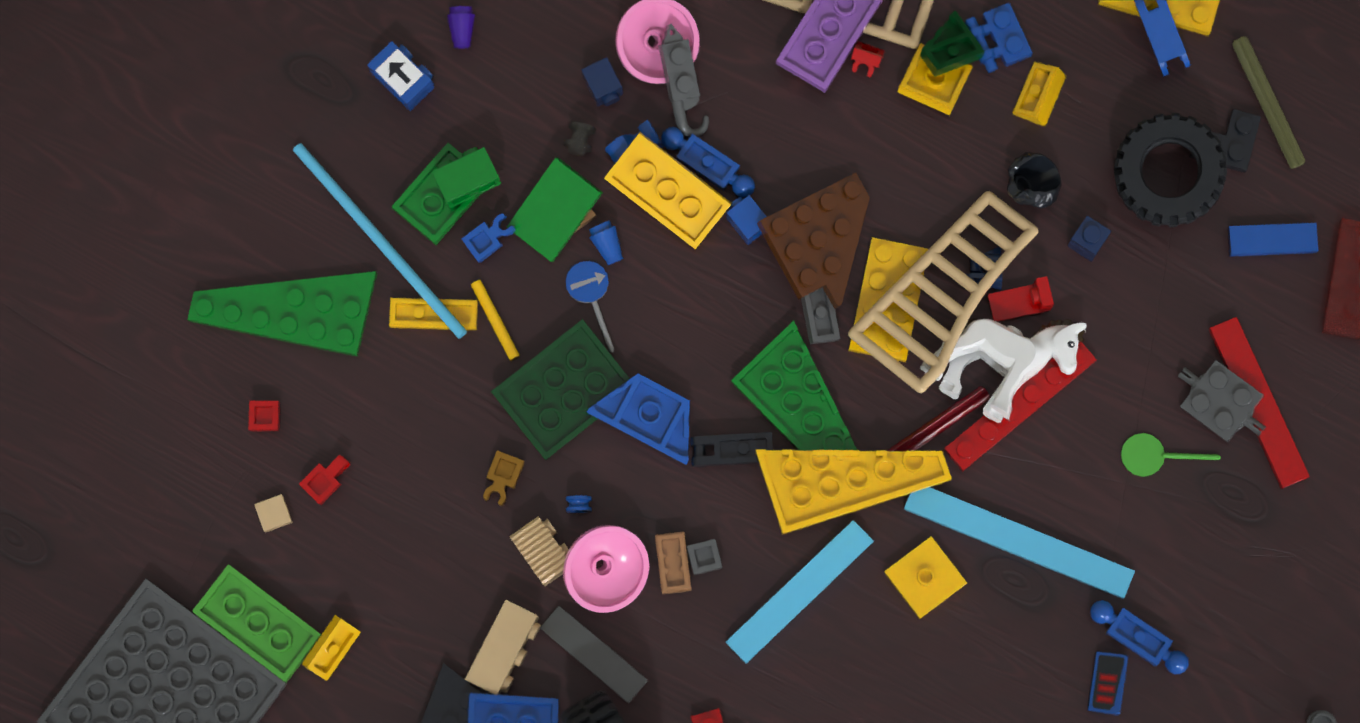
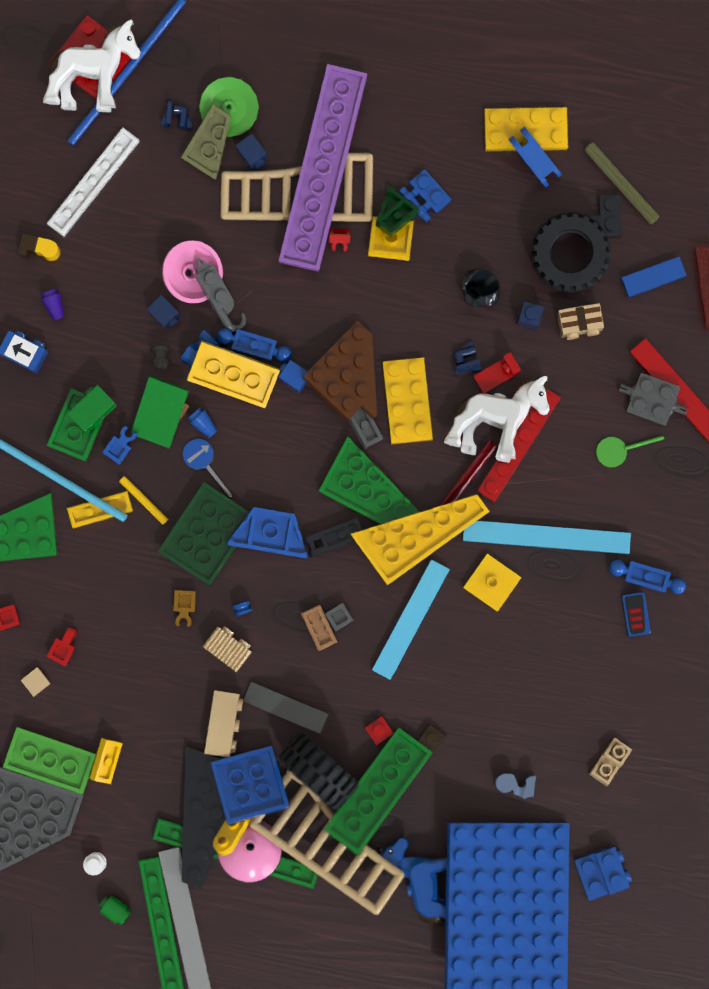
camera: 25 degrees left, 5 degrees up
(620, 576) = (283, 654): bright pink dish -> none
(914, 275) = (461, 395): tan bar -> none
(1039, 93) = (465, 225): yellow slope -> none
(1155, 266) = (580, 321): none -> brick

